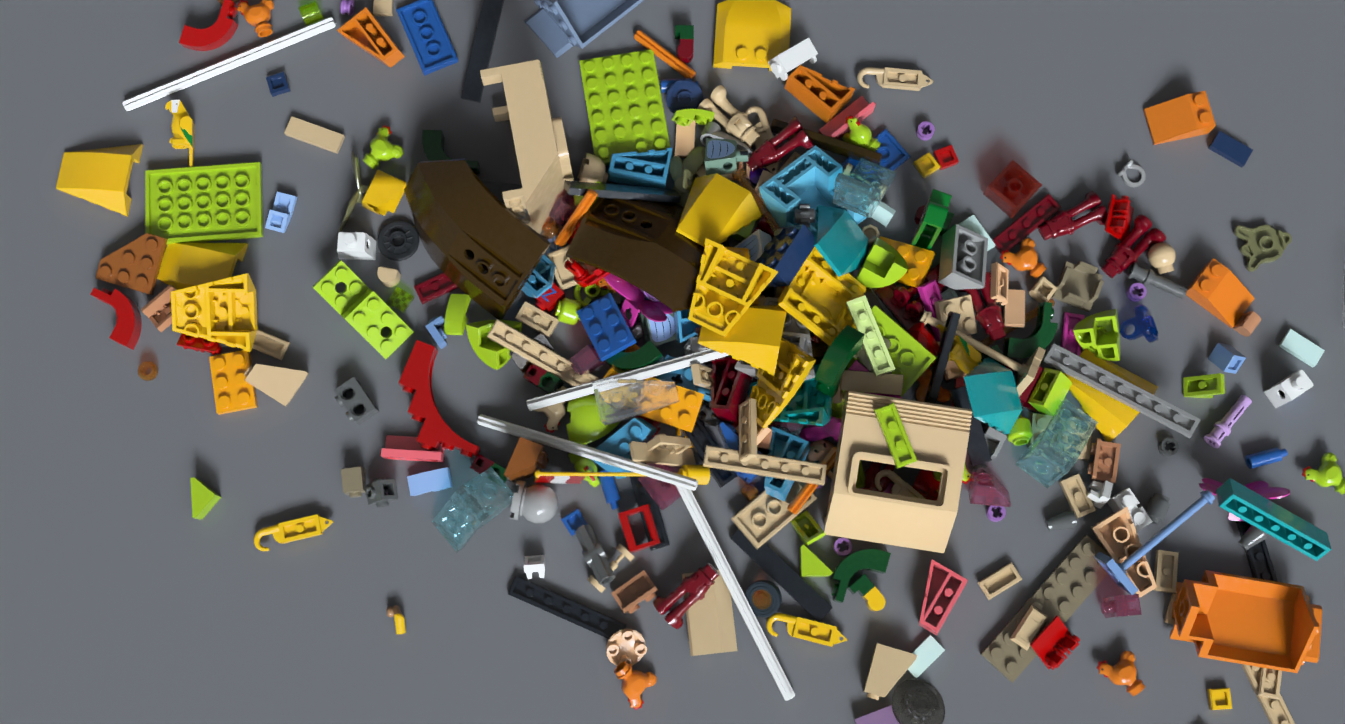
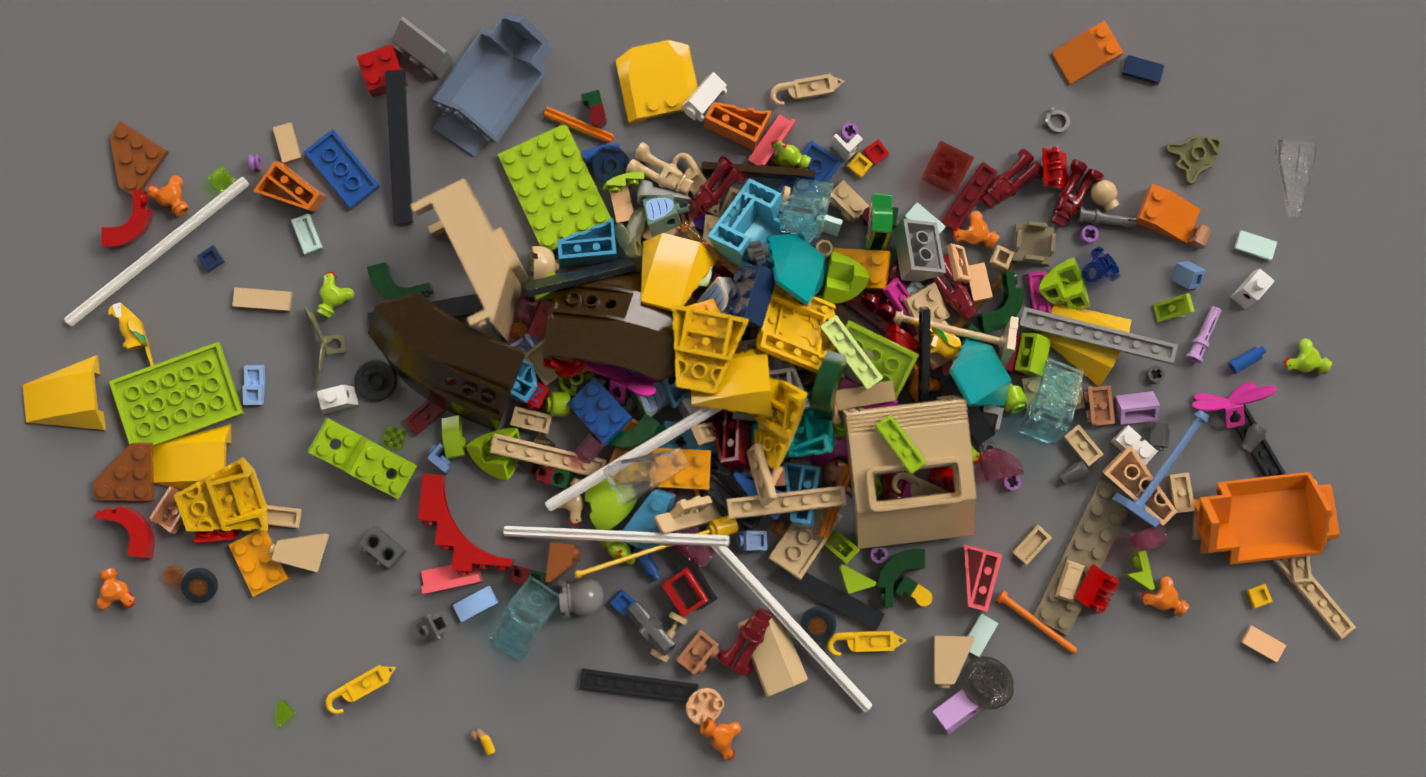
camera: 15 degrees left, 5 degrees up
(85, 369) = (113, 591): none -> orange animal
(168, 387) = (199, 585): none -> black wheel
(202, 498) = (265, 681): lime slope -> none
(210, 535) = (283, 713): none -> clear neon green tile
(353, 481) = (404, 624): dark tan brick -> none
(375, 86) = (307, 234): none -> light aqua tile
(383, 193) = (348, 339): yellow piece -> none
(388, 276) = (377, 418): tan brick -> none
(534, 564) = (597, 653): white tile -> none
(576, 217) = (541, 315): orange axle -> none
(720, 497) = (752, 540): none -> medium blue bracket
(905, 196) = (847, 202): none -> tan bracket
(919, 145) = (847, 150): none -> white panel
(983, 660) = (1002, 597): none -> orange bar
(1101, 493) = (1105, 437): white tile -> none
(1106, 644) = (1143, 576): none -> lime slope
(1142, 474) = (1137, 407): none -> lavender brick
(1273, 519) = (1267, 418): teal brick -> none

